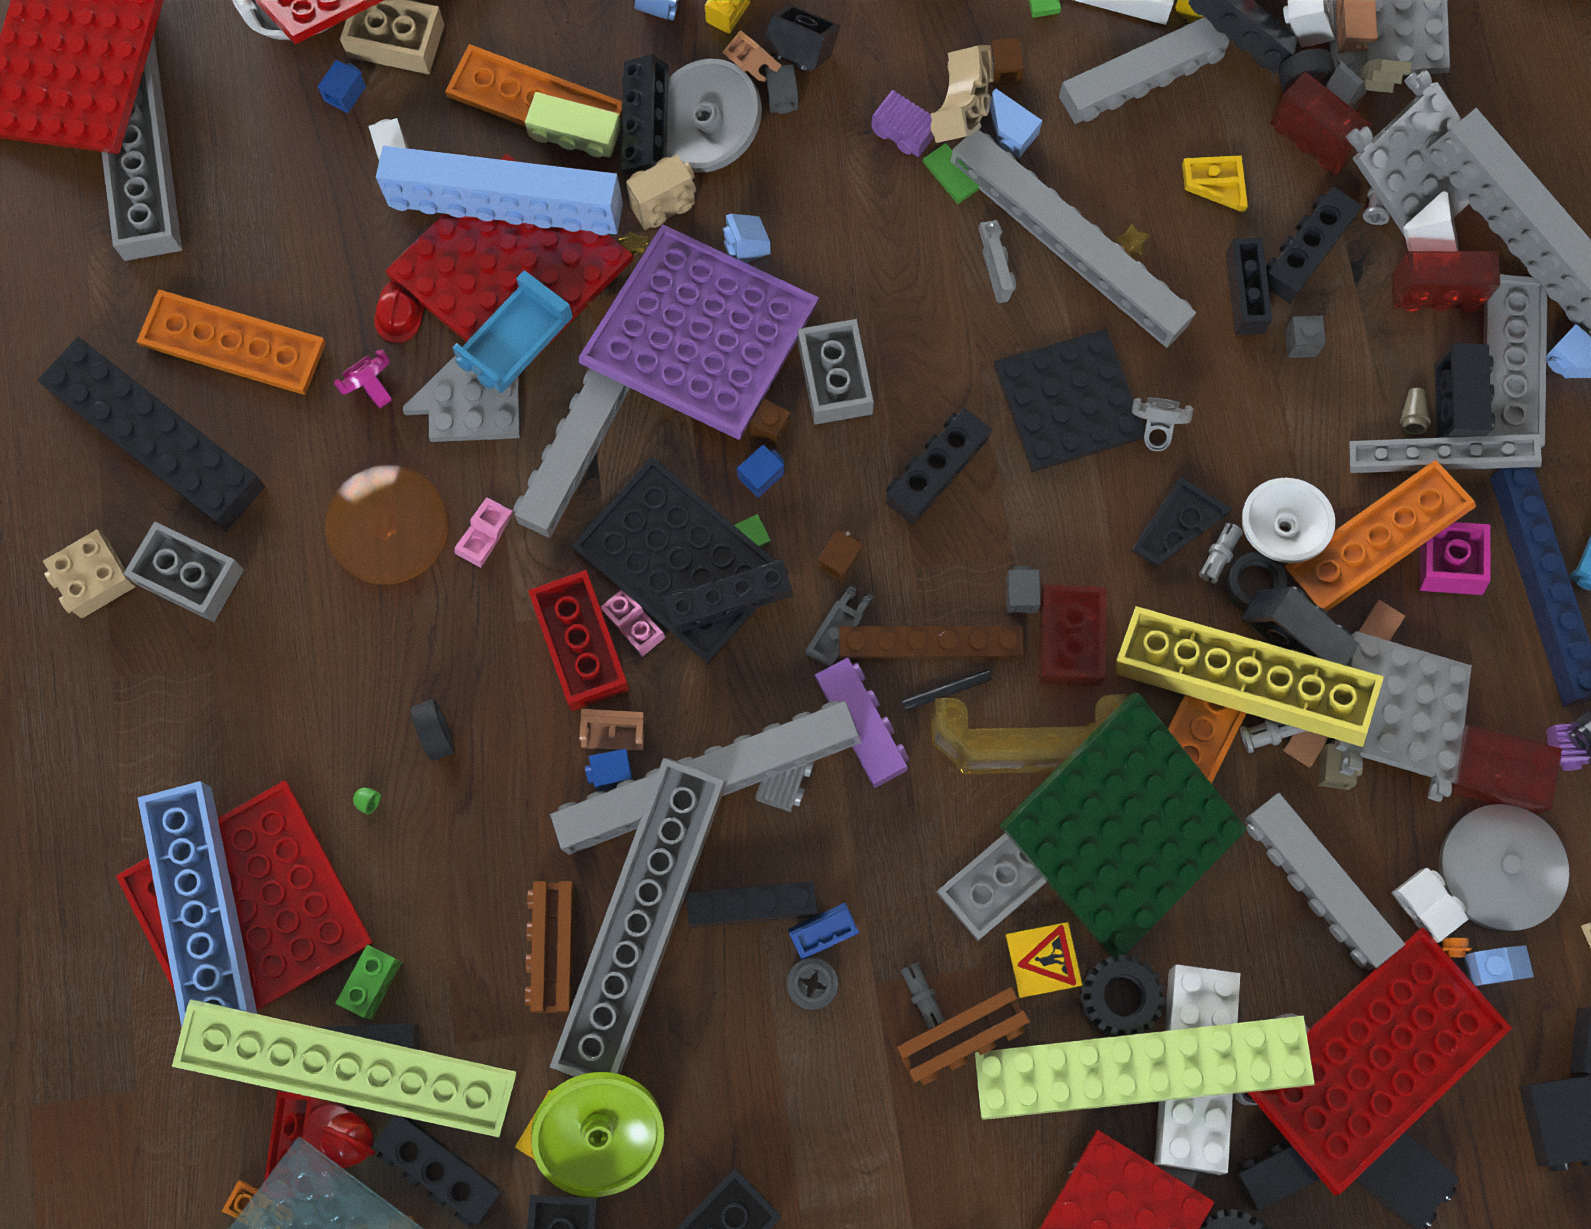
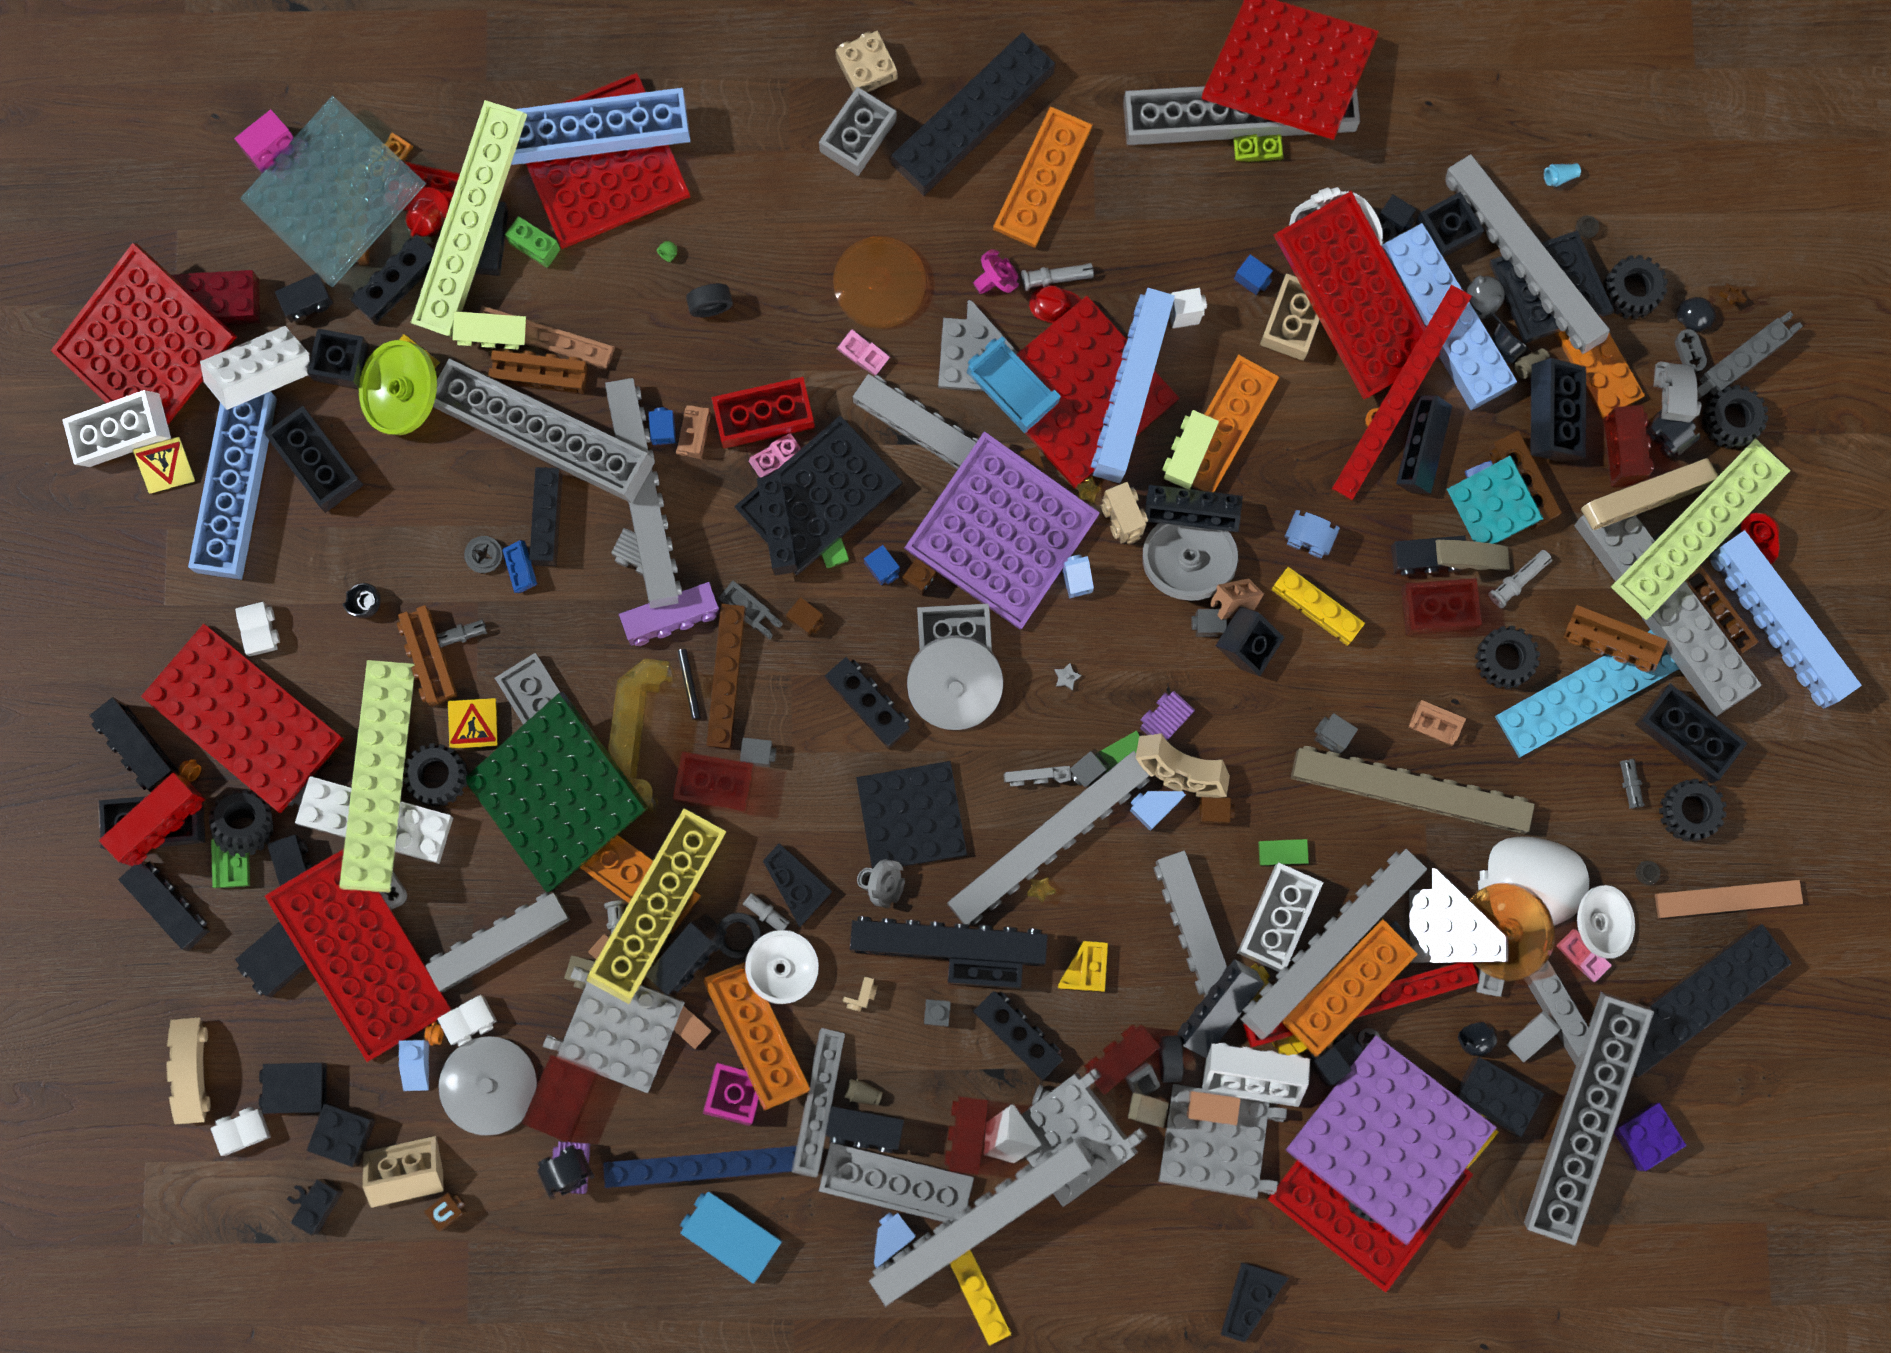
camera: 95 degrees right, 5 degrees up
(177, 99) = (1258, 148): none -> lime slope
(363, 323) = (1046, 277): none -> light grey pin
(501, 950) = (563, 342): none -> nougat tile
(502, 1018) = (489, 329): none -> yellowish green brick
(868, 244) = (1066, 677): none -> light grey piece
(900, 360) = (955, 682): none -> light grey dish
(900, 1138) = (362, 600): none -> black hair
(980, 200) = (1089, 768): none -> dark grey brick
(1221, 330) = (947, 942): none -> black brick
(1298, 422) = (867, 992): none -> tan bracket

